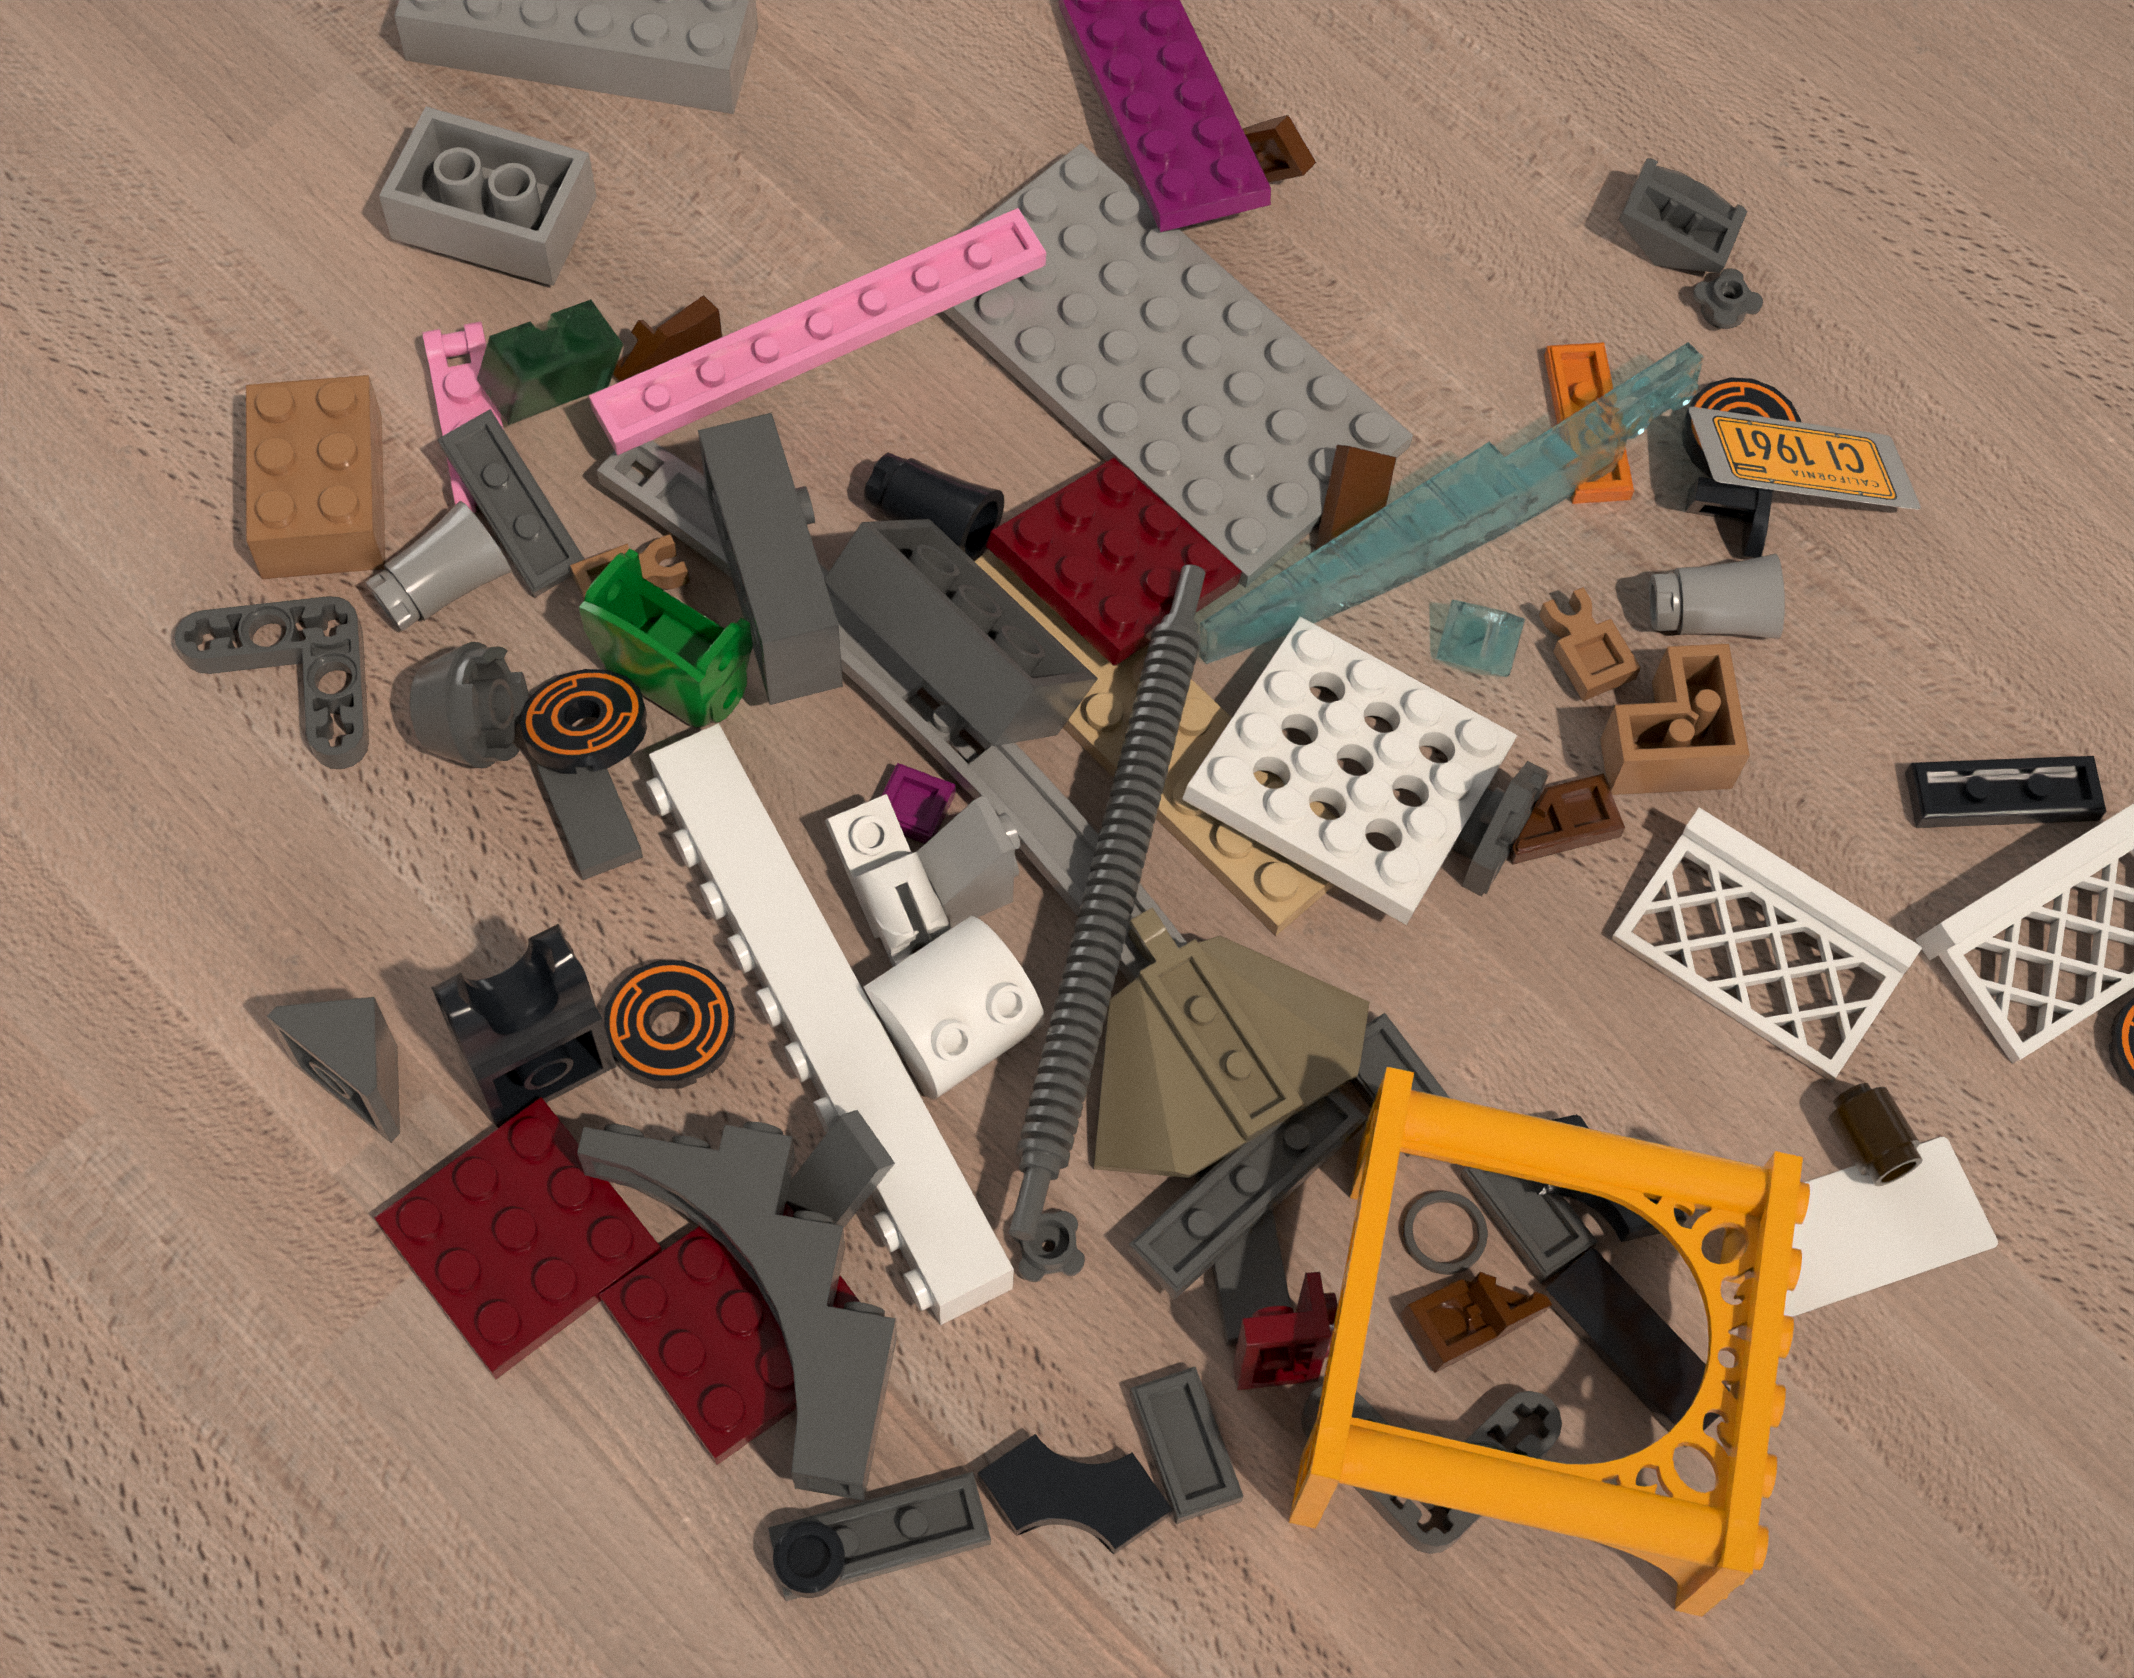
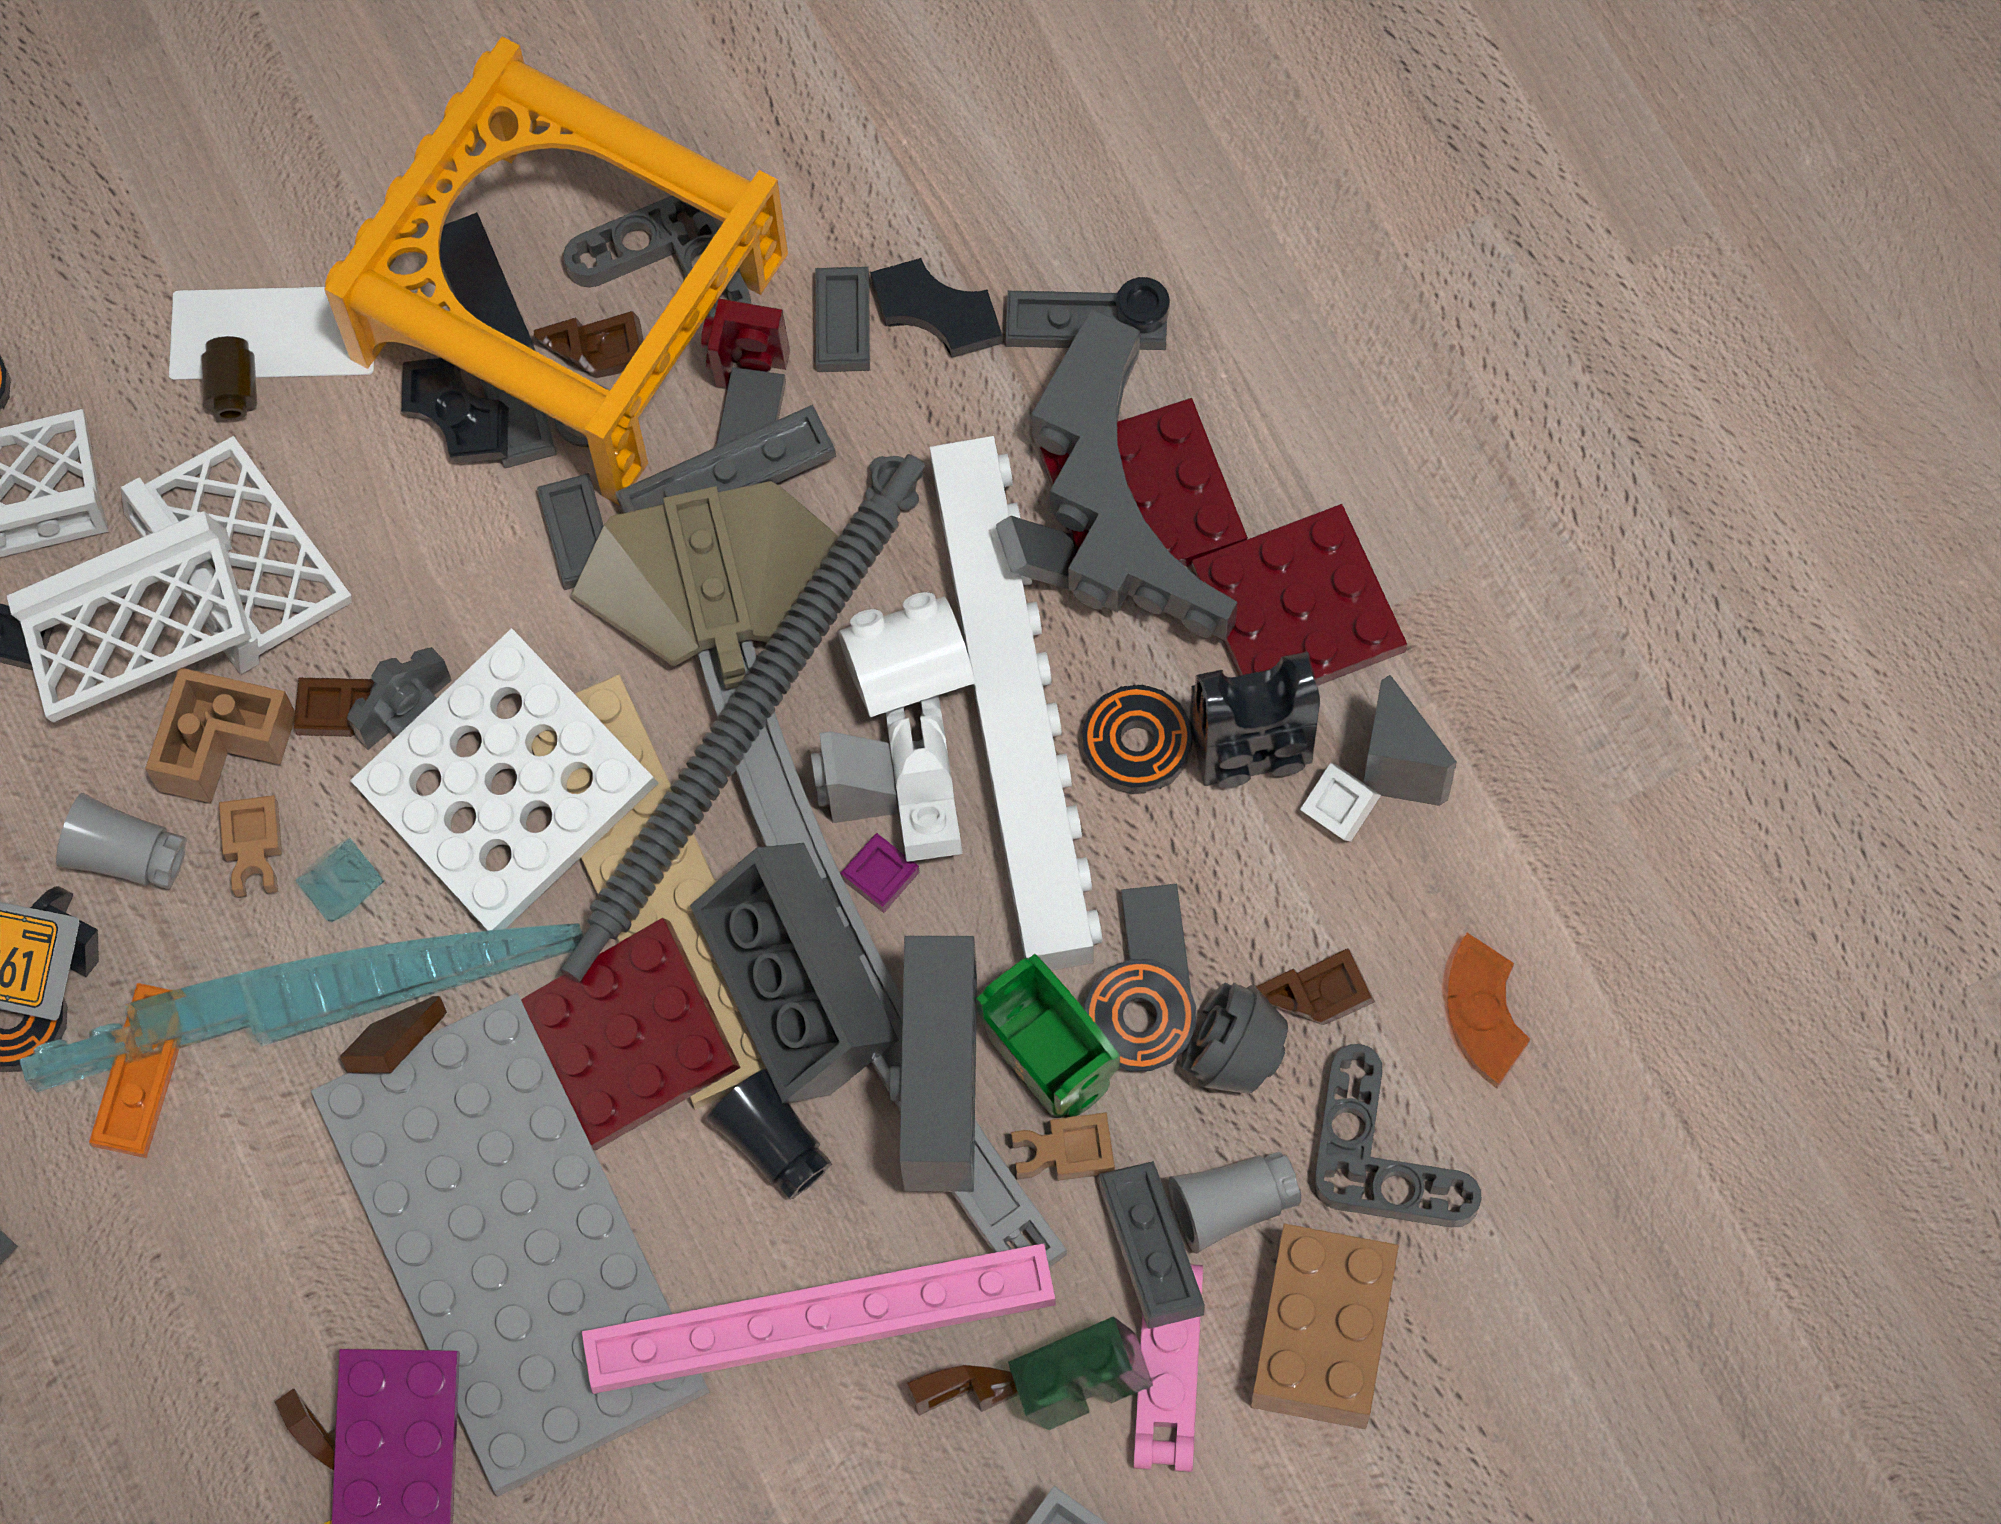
camera: 155 degrees left, 5 degrees up
(214, 840) = (1480, 1010): none -> clear orange tile
(396, 809) = (1322, 990): none -> reddish brown slope
(411, 1006) = (1340, 802): none -> white plate
(1851, 841) = (128, 573): none -> white fence

